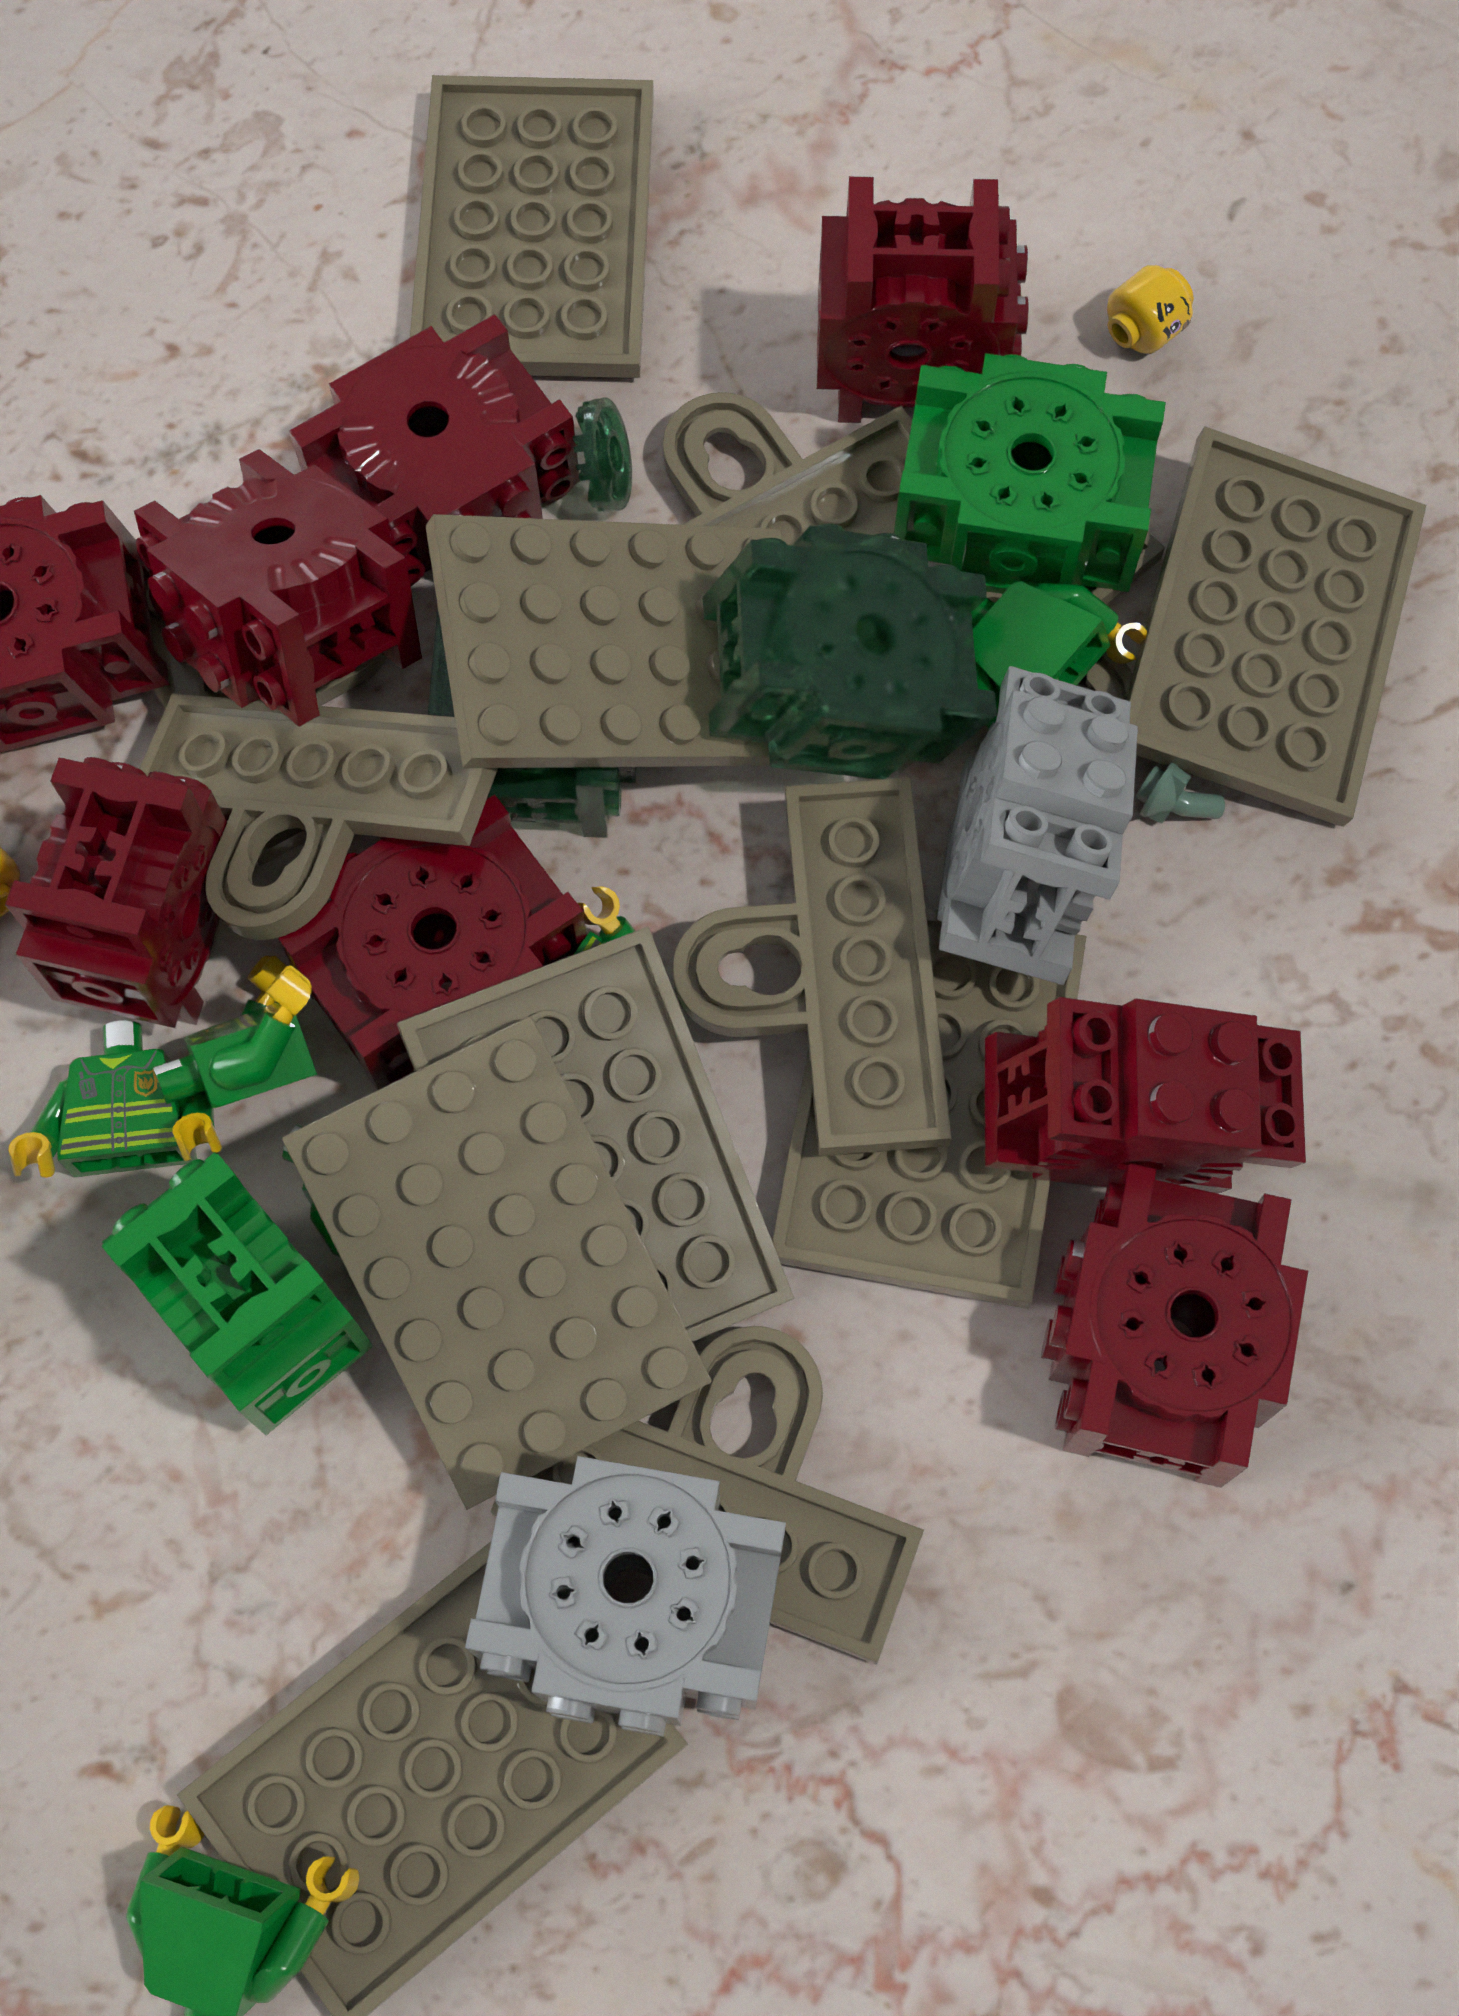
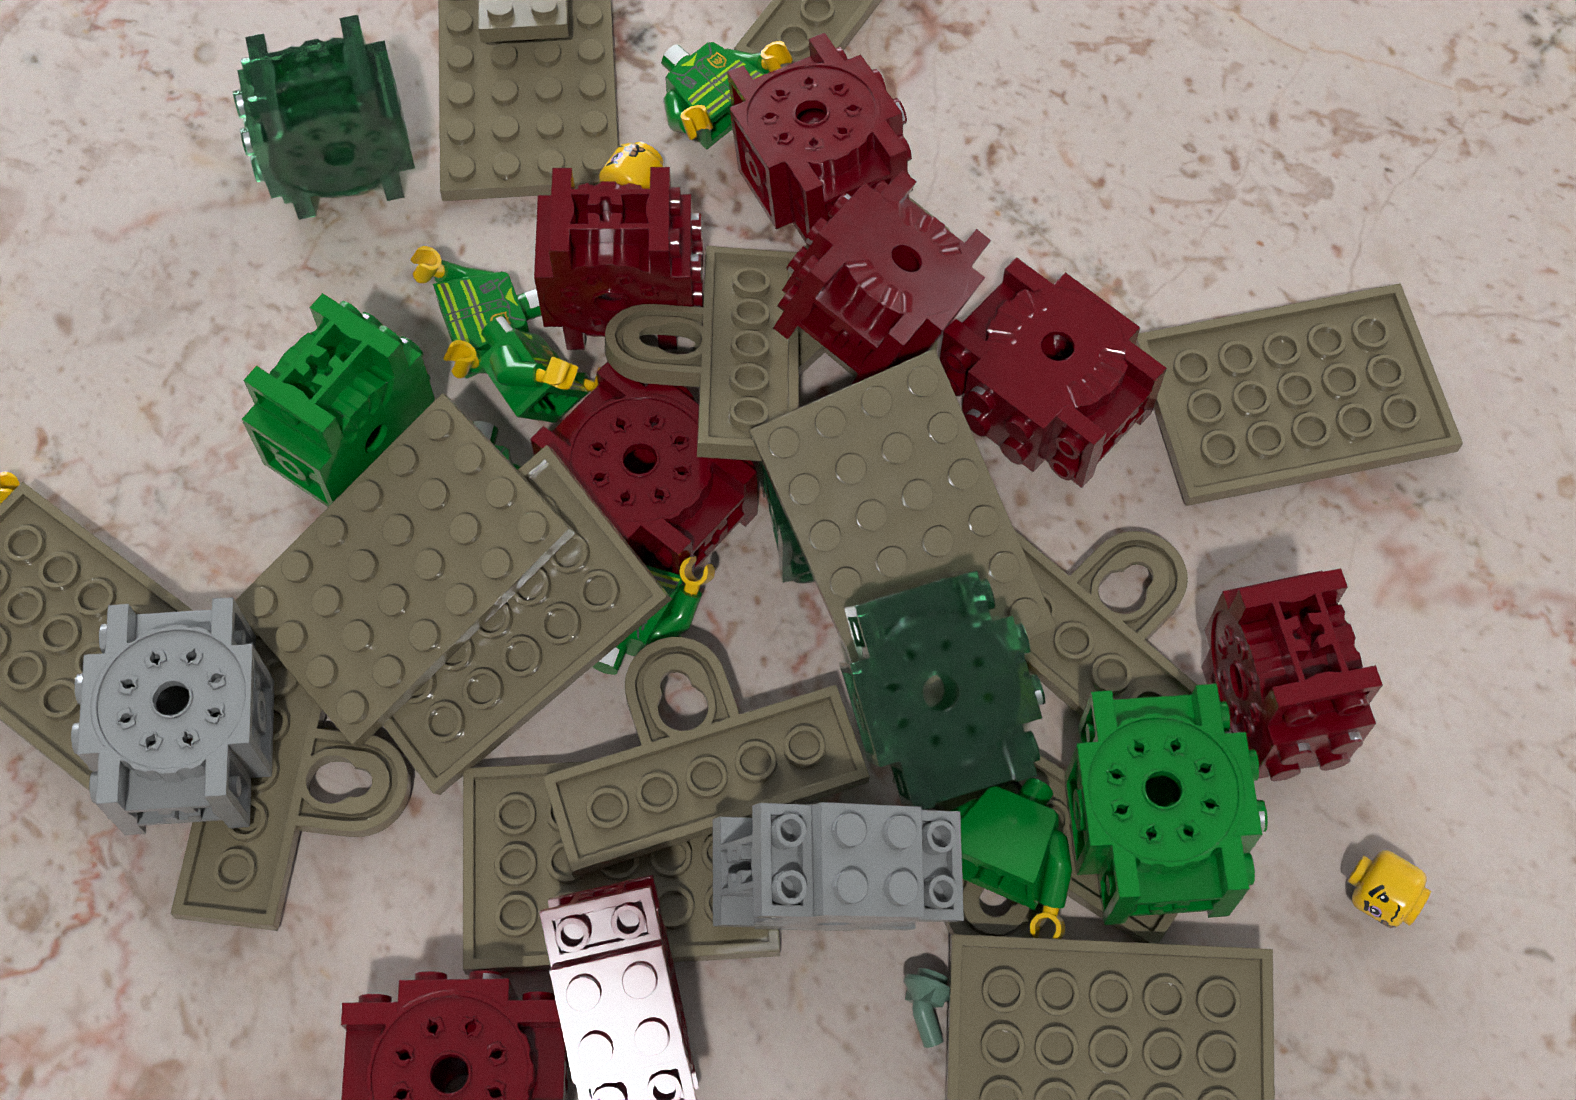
camera: 75 degrees right, 5 degrees down
(605, 454) = (1092, 489): clear green wheel -> none

